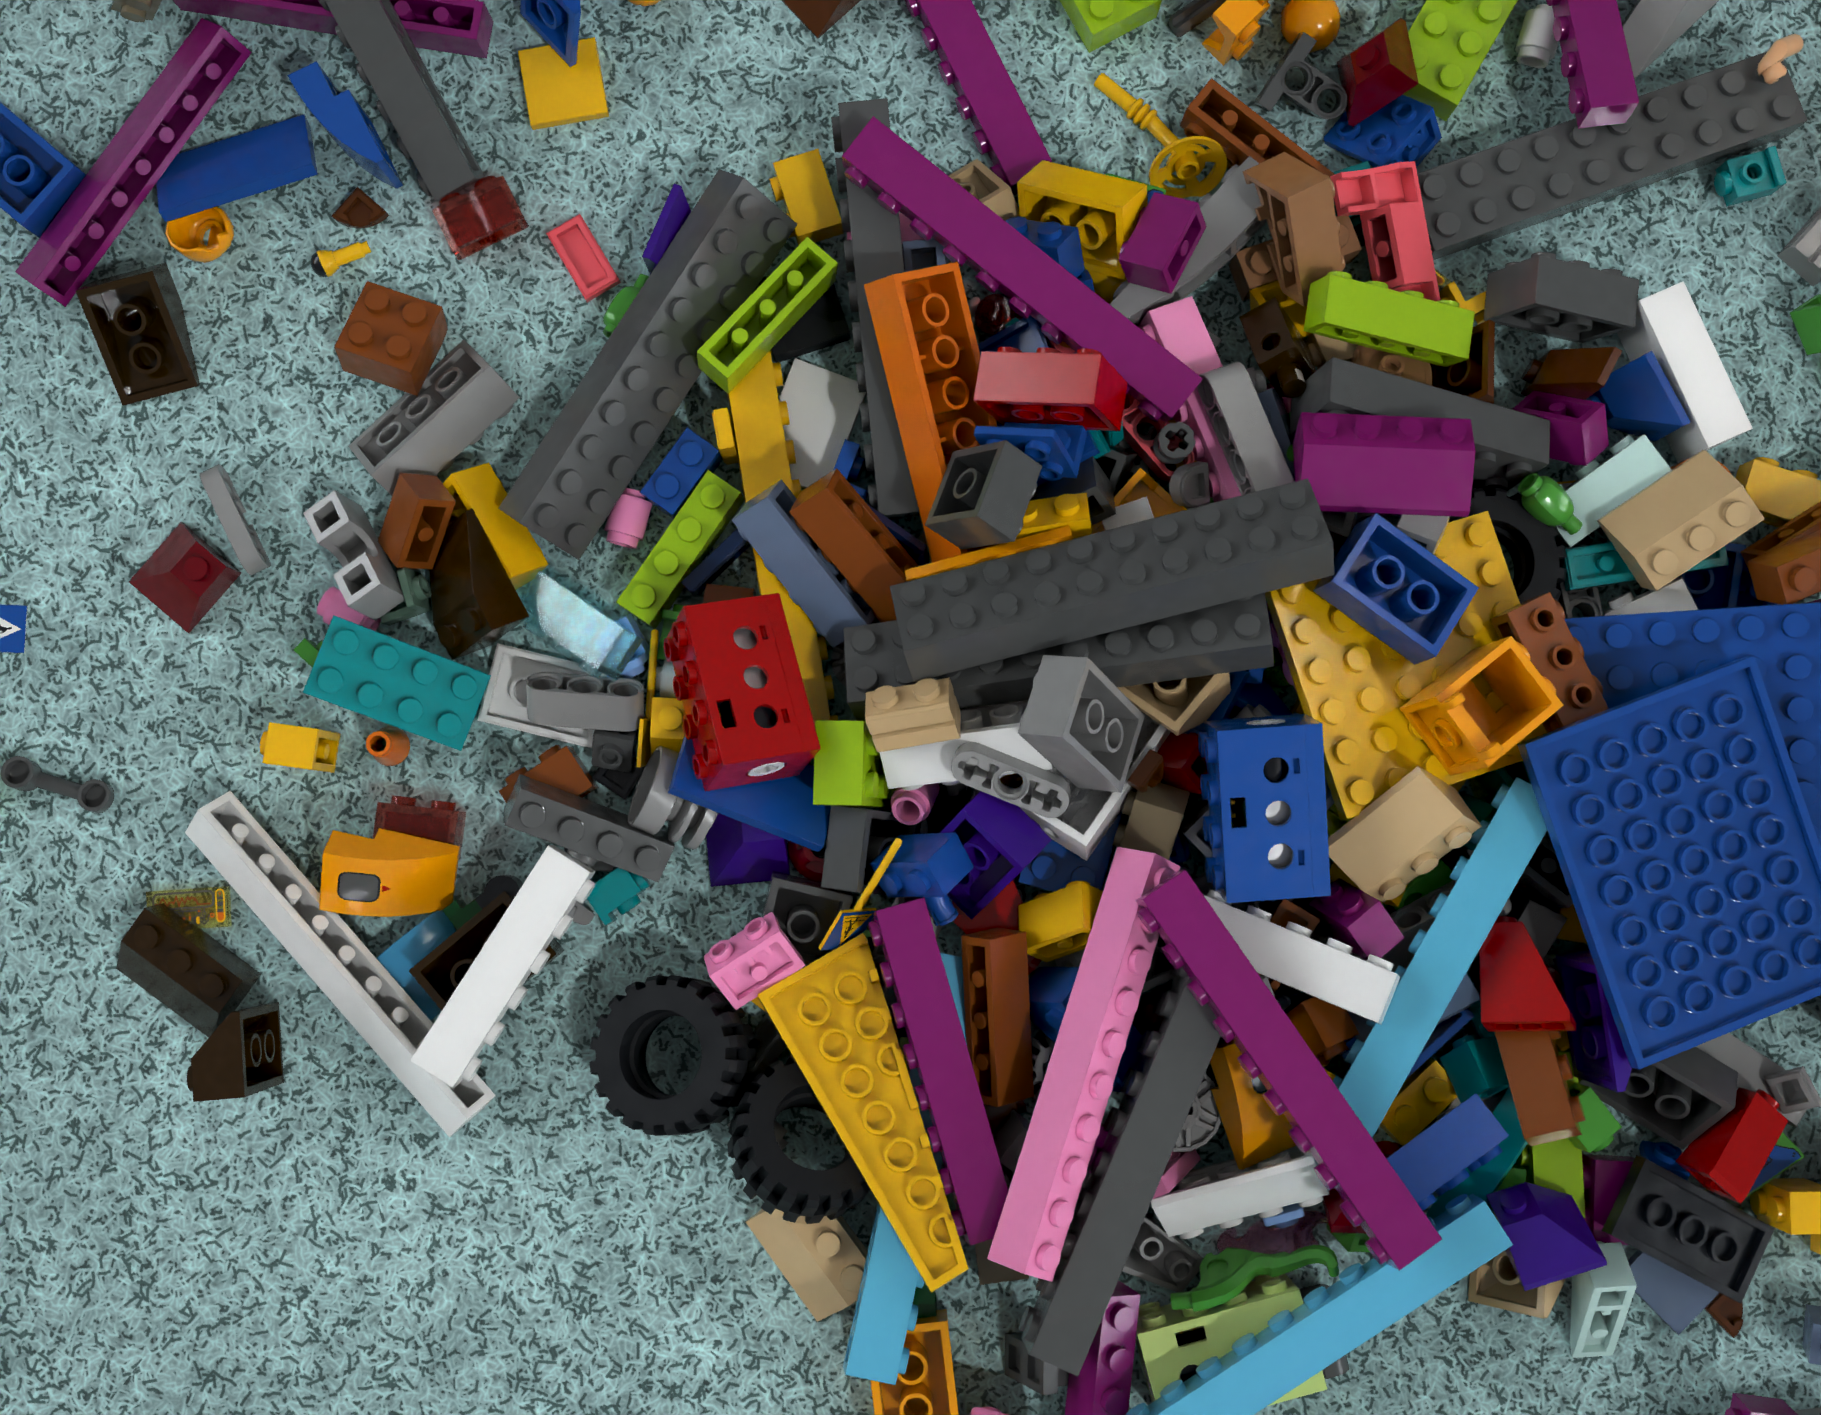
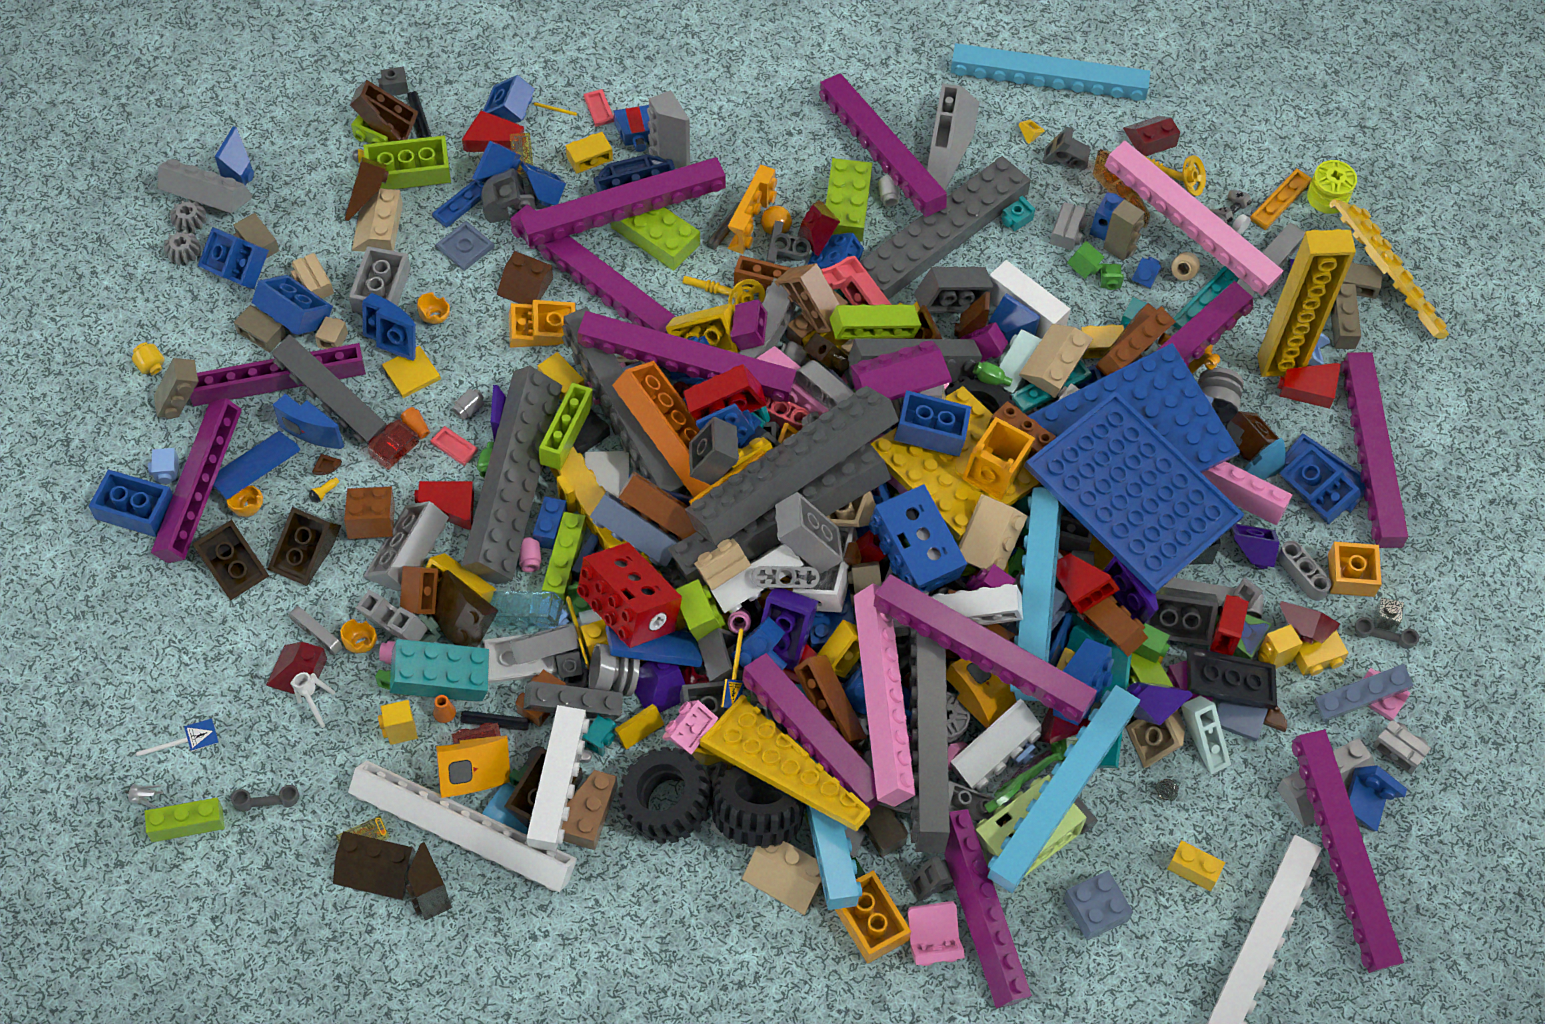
camera: 25 degrees left, 25 degrees down
(92, 110) = (164, 465): none -> light blue brick
(172, 630) = (305, 686): none -> white plant
(269, 352) = (303, 545): none -> dark brown slope
(286, 549) = (353, 631): none -> light orange hair
(459, 792) = (503, 721): none -> black axle
(532, 189) = (414, 420): none -> orange cone
(532, 363) = (451, 497): none -> red slope
(549, 1018) = (590, 809): none -> medium nougat wedge
(633, 188) = (468, 404): none -> light grey brick
(685, 902) = (639, 726): none -> yellow tile
(814, 72) = (538, 323): none -> light orange slope
(1161, 442) = (792, 402): dark grey bush -> none
(1221, 311) = (795, 352): none -> light grey head
(1486, 1360) = (1167, 789): none -> clear smoke plate
(1770, 65) = (1001, 161): light nougat arm -> none

